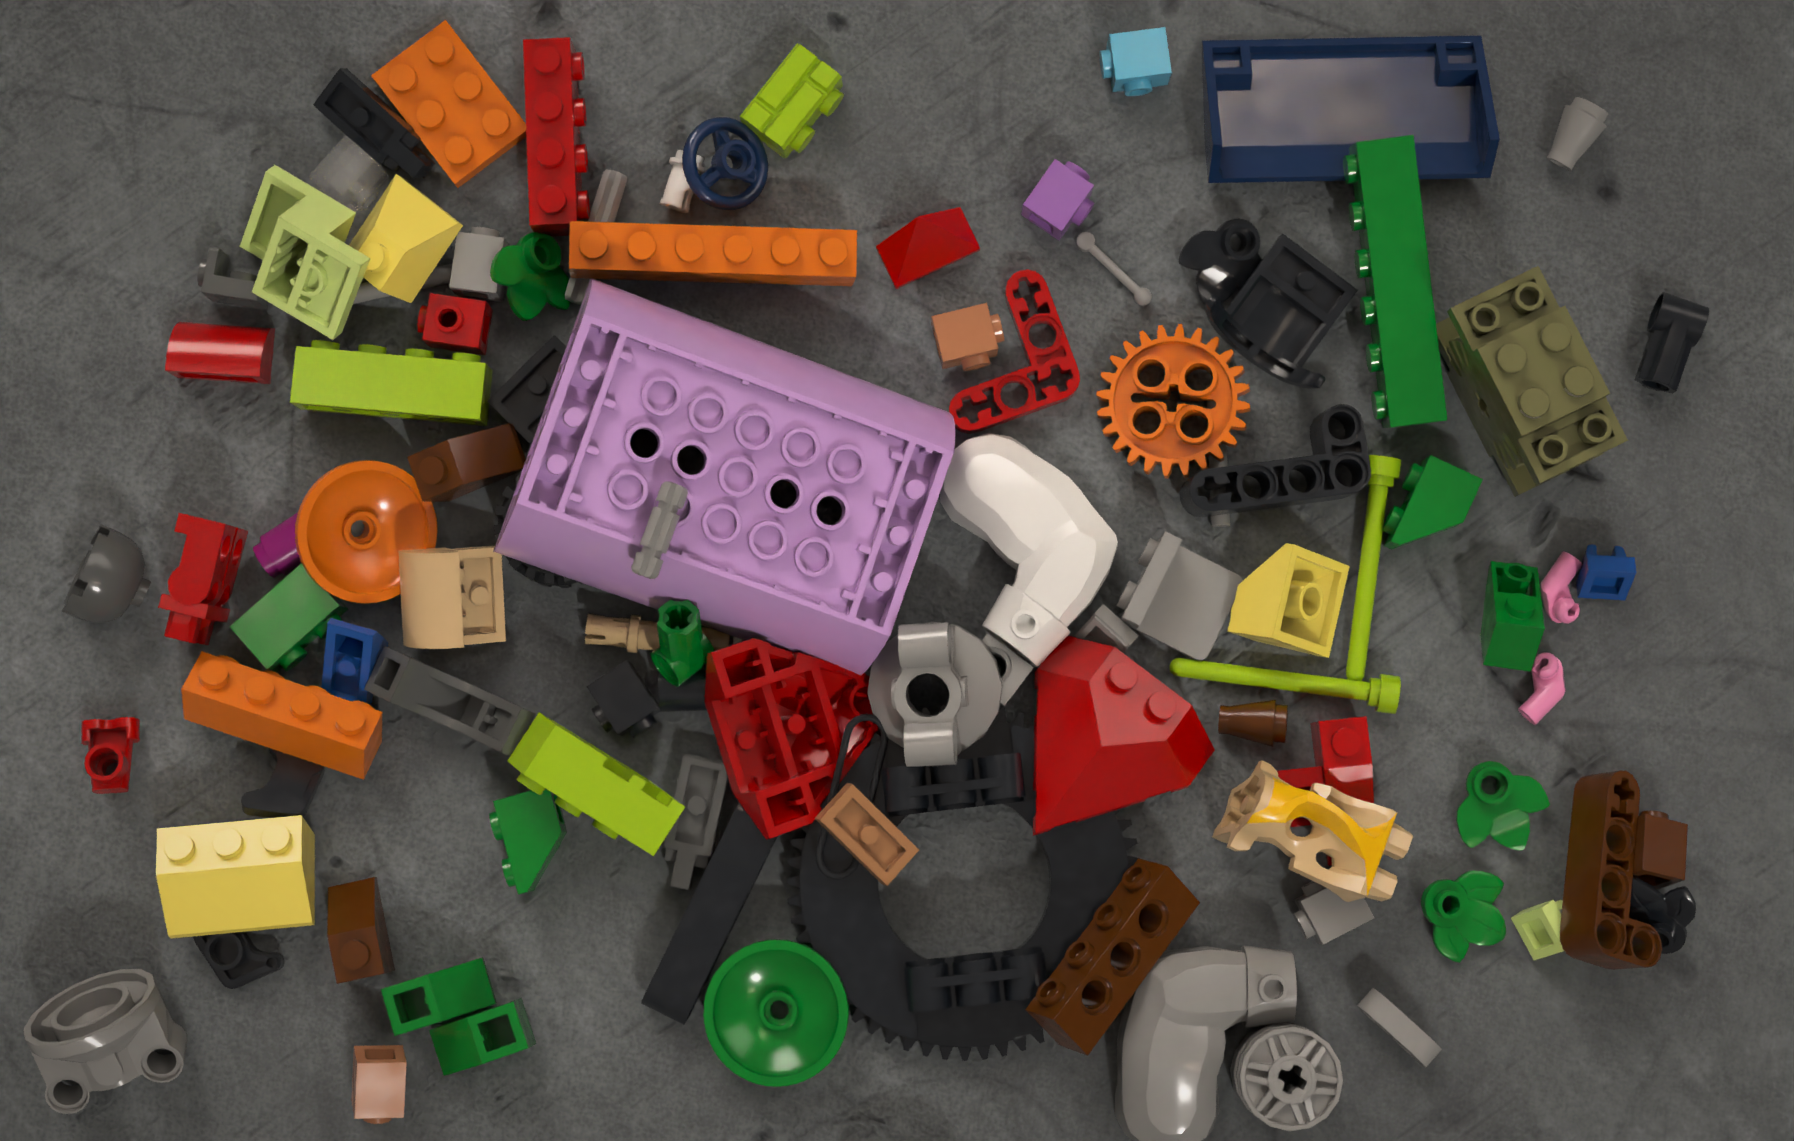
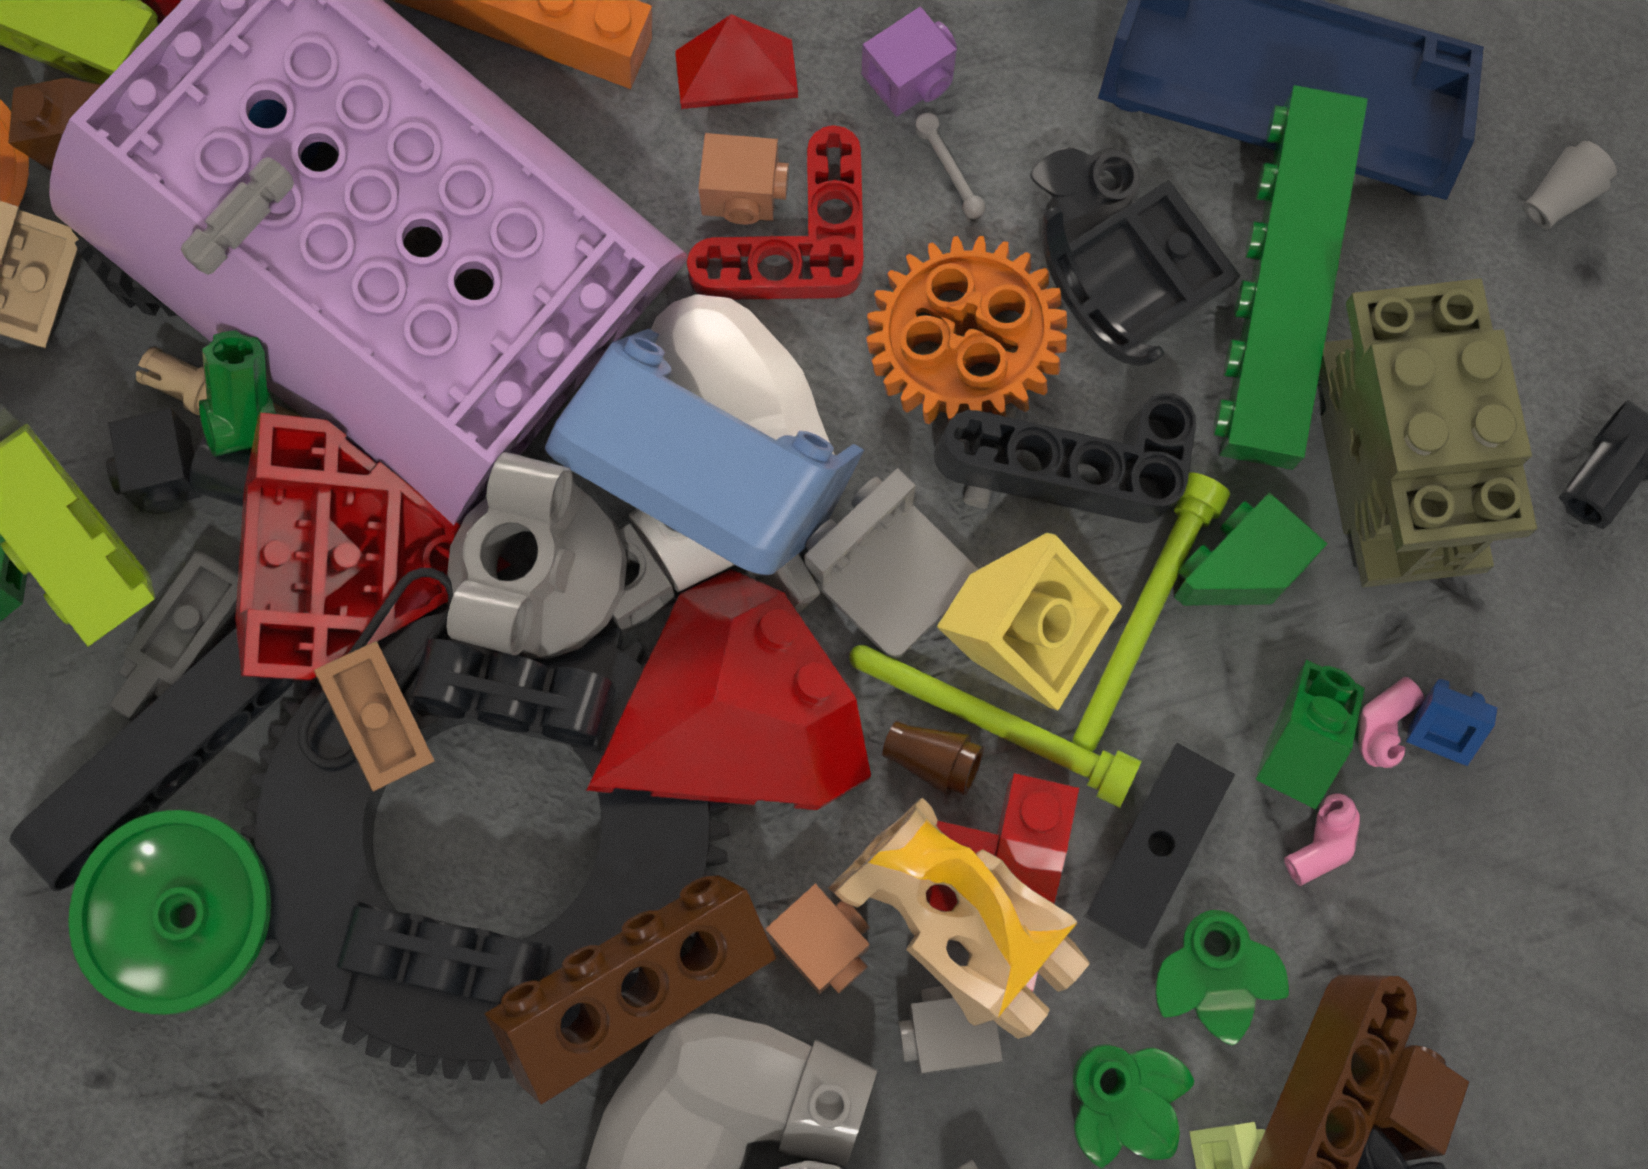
camera: 15 degrees right, 10 degrees down
(1025, 584) = (697, 463): none -> medium blue windscreen
(1223, 877) = (822, 940): none -> nougat brick
(1438, 701) = (1179, 812): none -> black tile

